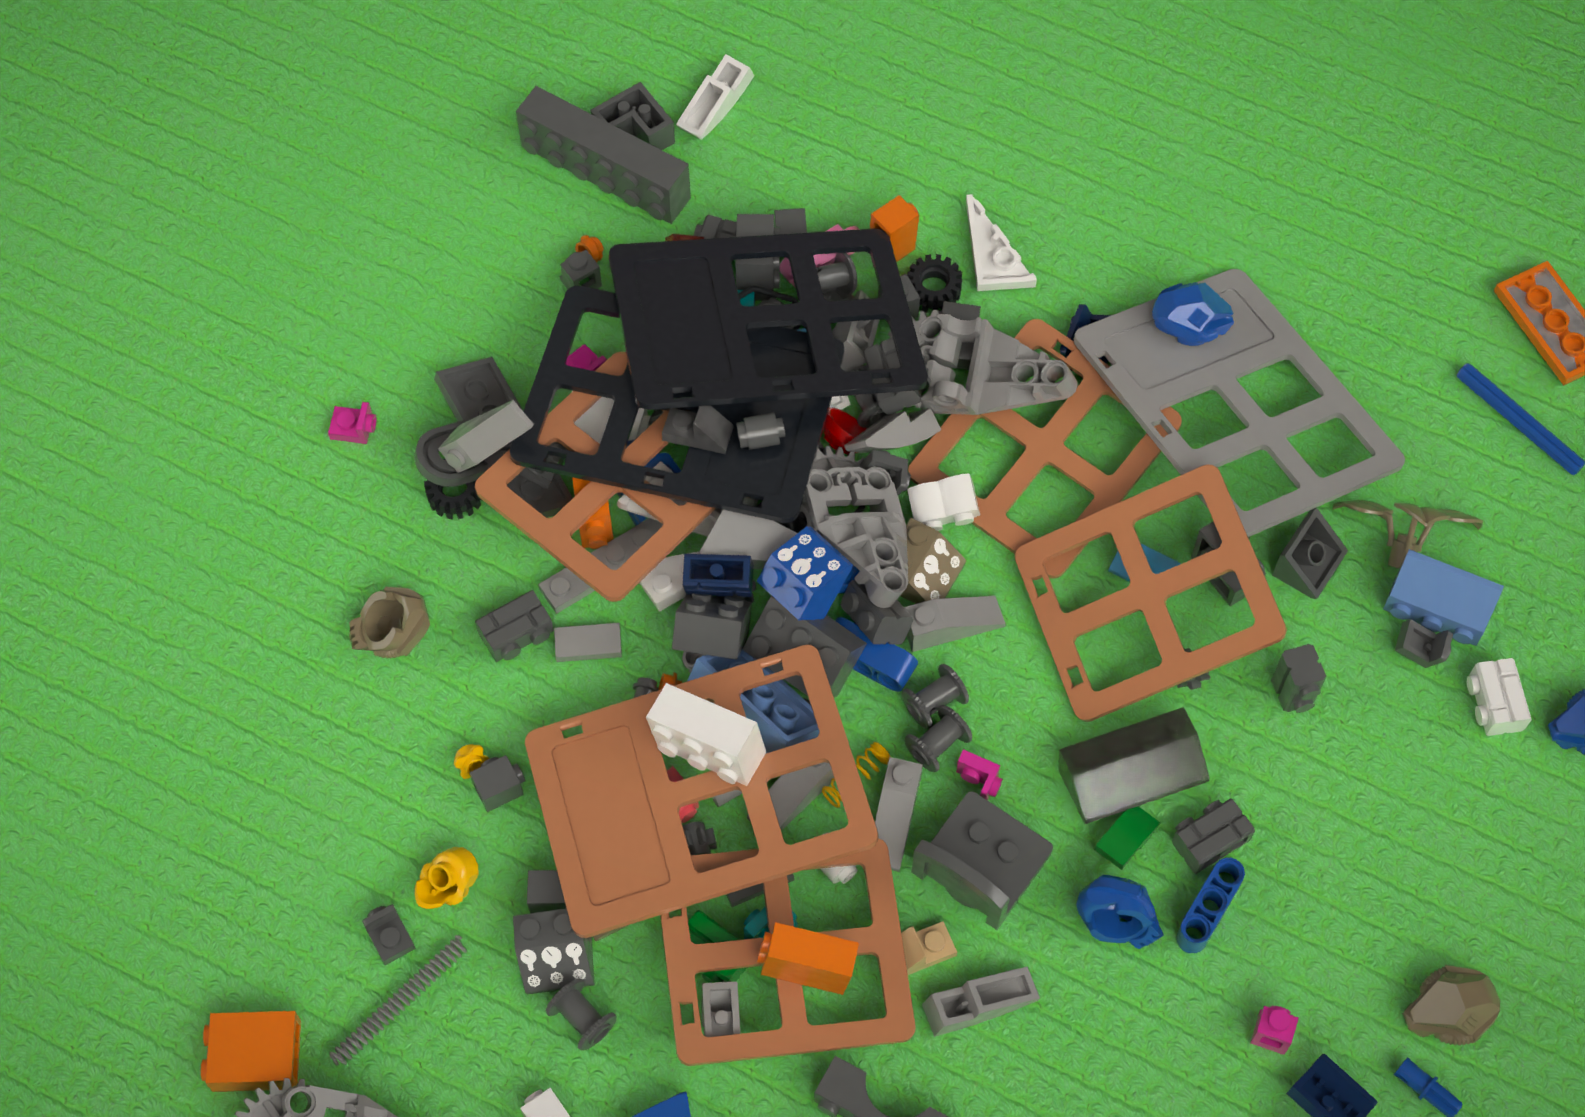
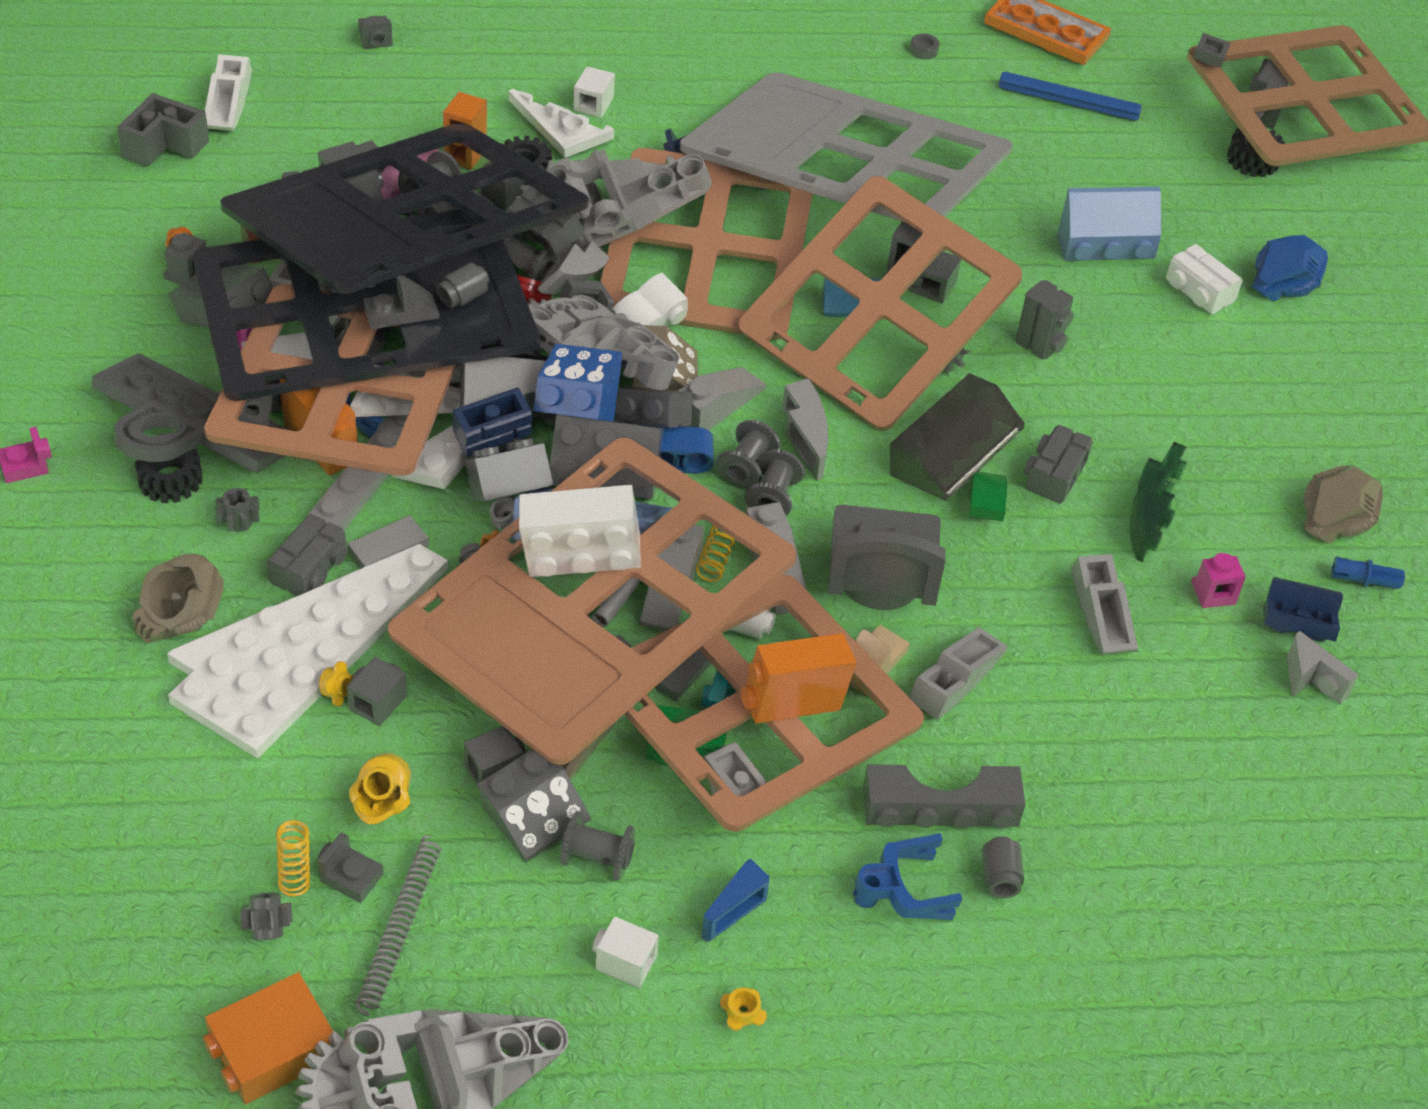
camera: 35 degrees left, 15 degrees down
(303, 946) = (266, 916): none -> dark grey gear
(343, 910) = (282, 845): none -> yellow piece
(433, 709) = (267, 668): none -> white wing
(484, 435) = (190, 386): light grey slope -> none
(485, 554) = (237, 509): none -> dark grey gear
(595, 339) = (243, 285): none -> dark grey brick
(603, 155) = (148, 159): dark grey brick -> none
(889, 71) = (375, 32): none -> dark grey bracket
(976, 770) = (826, 494): dark pink bracket -> none
(1009, 688) = (806, 425): none -> light grey slope
(1046, 226) = (594, 92): none -> white brick
(1113, 898) = (1029, 544): blue helmet -> none
(1154, 1001) = (1104, 604): none -> light grey slope
(1192, 313) = (767, 98): blue helmet -> none
(1214, 890) = (1096, 512): blue beam -> none
(1268, 921) = (1154, 499): none -> clear green slope
(1310, 556) = (984, 226): dark grey slope -> none
(1412, 296) = (924, 46): none -> dark grey tile
(1423, 645) = (1119, 269): dark grey bracket -> none
(1424, 515) = (1054, 201): dark tan plant -> none

